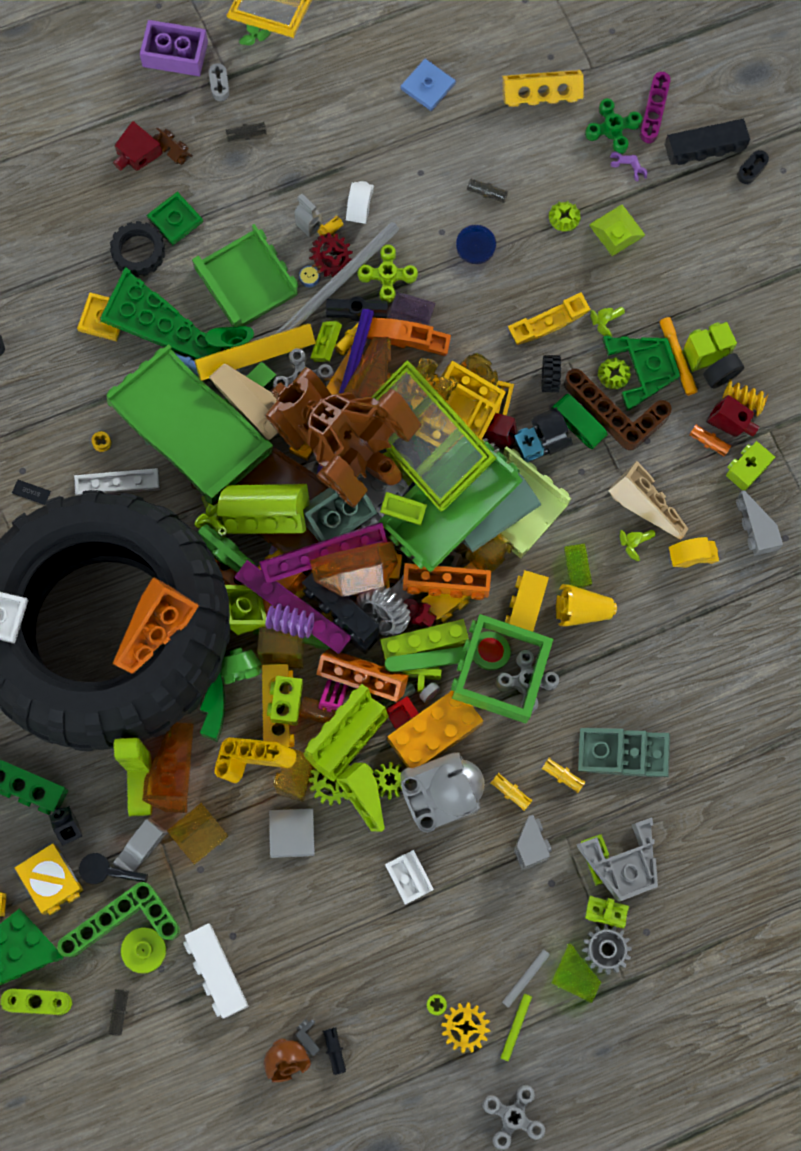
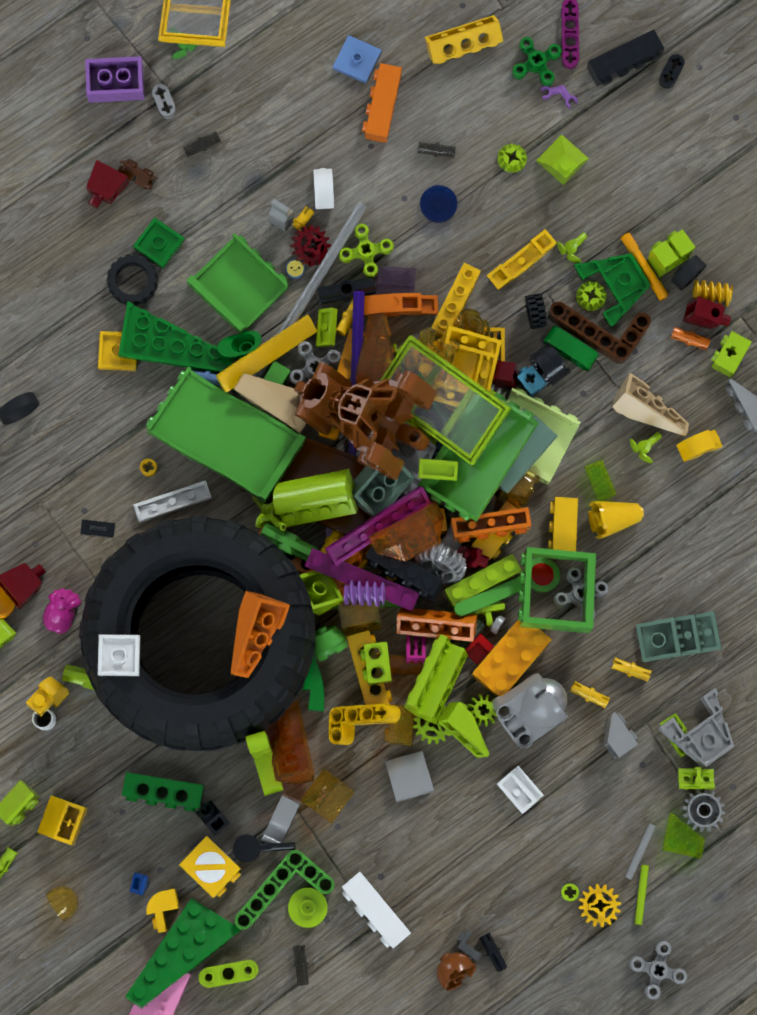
camera: 15 degrees left, 5 degrees up
(443, 131) = (383, 102): none -> orange brick
(472, 339) = (456, 298): none -> yellow brick

